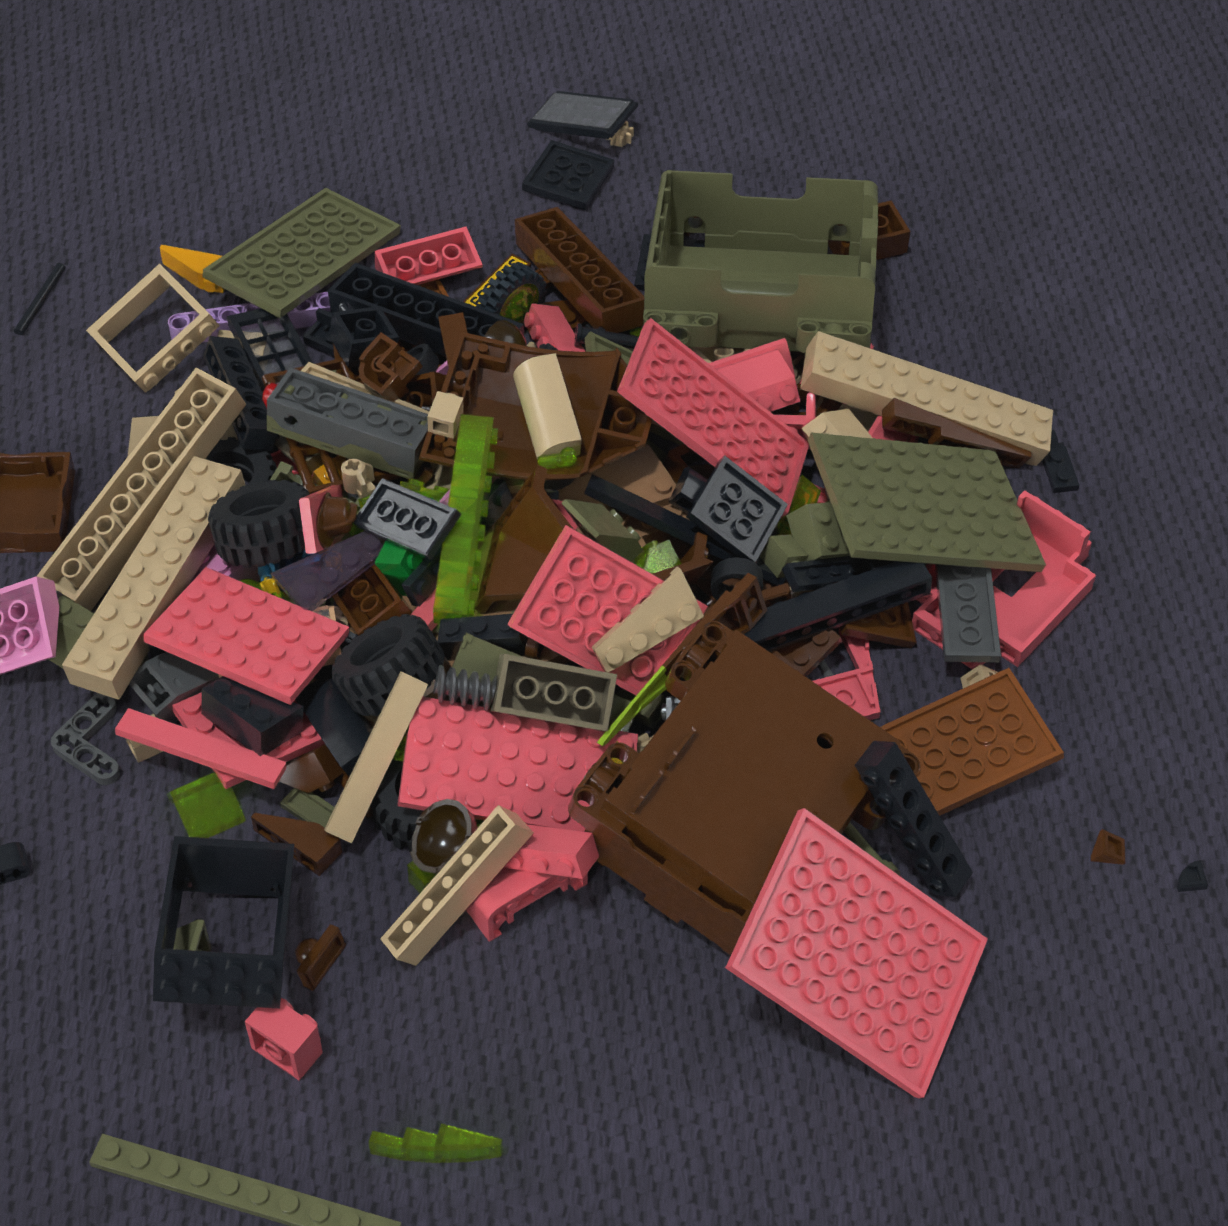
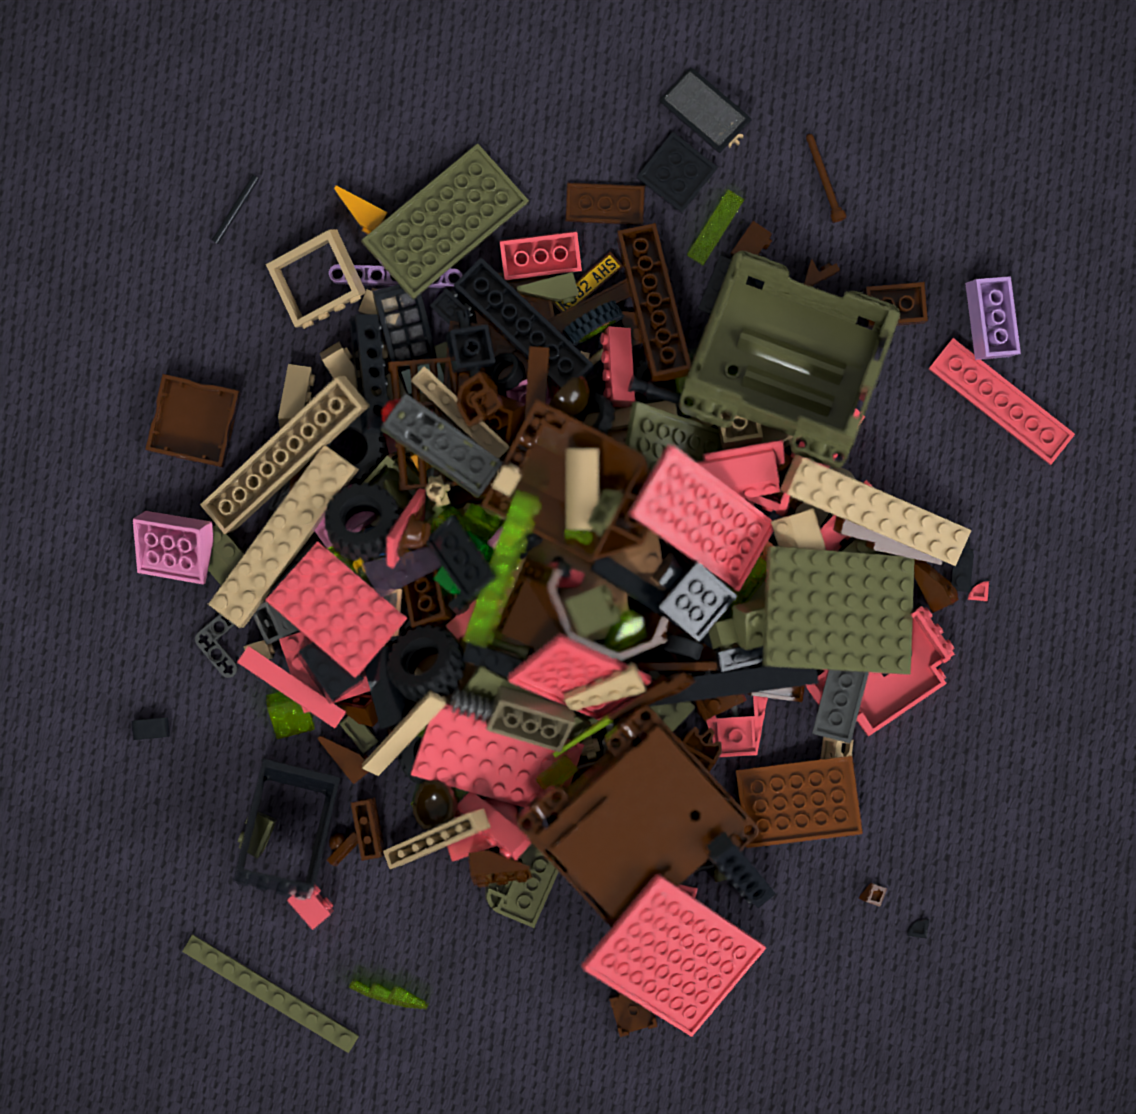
camera: 20 degrees right, 35 degrees up
(351, 918) = (368, 828): none -> reddish brown brick
(458, 283) = (554, 289): none -> olive slope
(490, 215) = (605, 203): none -> reddish brown tile
(560, 909) = (493, 868): none -> reddish brown slope
(582, 416) = (605, 510): none -> olive panel
(600, 940) = (526, 899): none -> olive plate
(629, 212) = (715, 227): none -> clear neon green plate
(766, 177) = (837, 213): none -> reddish brown piece
(822, 1081) = (630, 1015): none -> reddish brown panel
(984, 222) = (992, 318): none -> lavender brick
(1030, 300) = (1001, 401): none -> coral plate
(1037, 482) = (935, 588): none -> reddish brown slope
(1091, 486) = (979, 592): none -> coral tile

